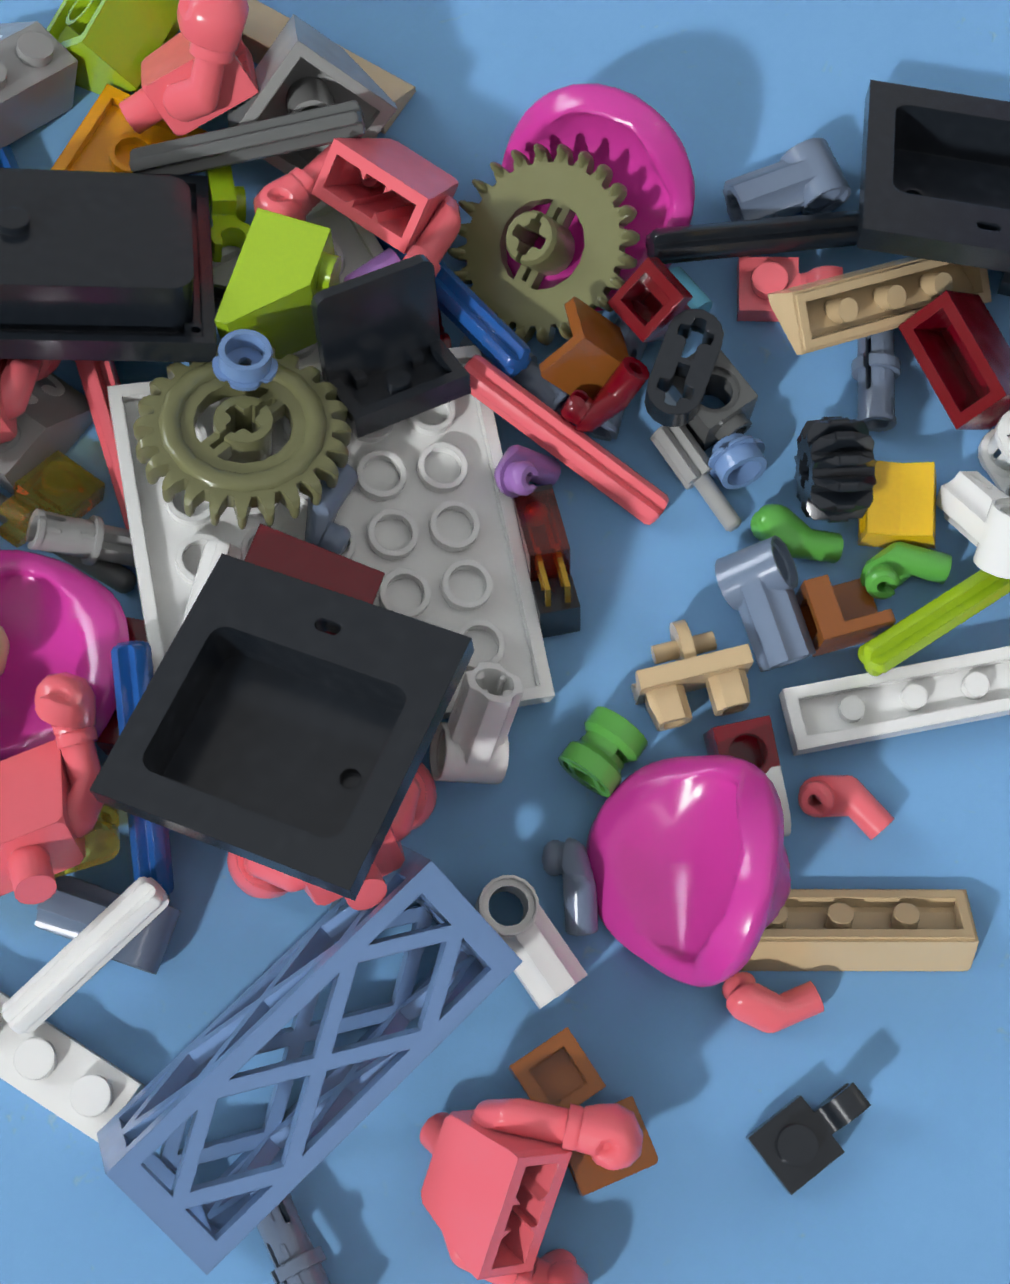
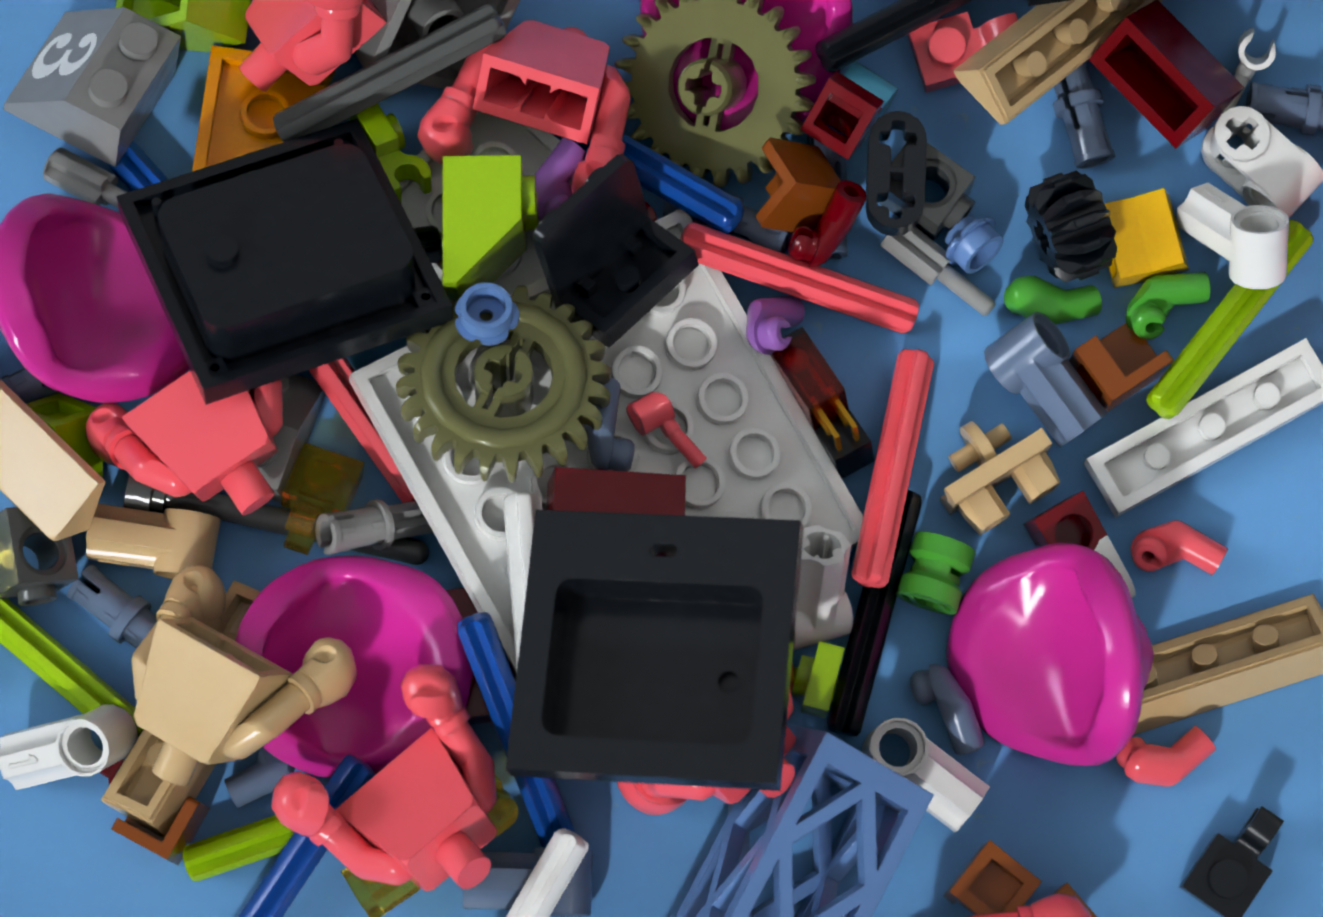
camera: 15 degrees left, 5 degrees up
(382, 511) = (657, 411): none -> coral hand
(452, 813) = (818, 679): none -> lime plate
(530, 772) = (869, 635): none -> black axle
(592, 642) = (892, 468): none -> coral axle

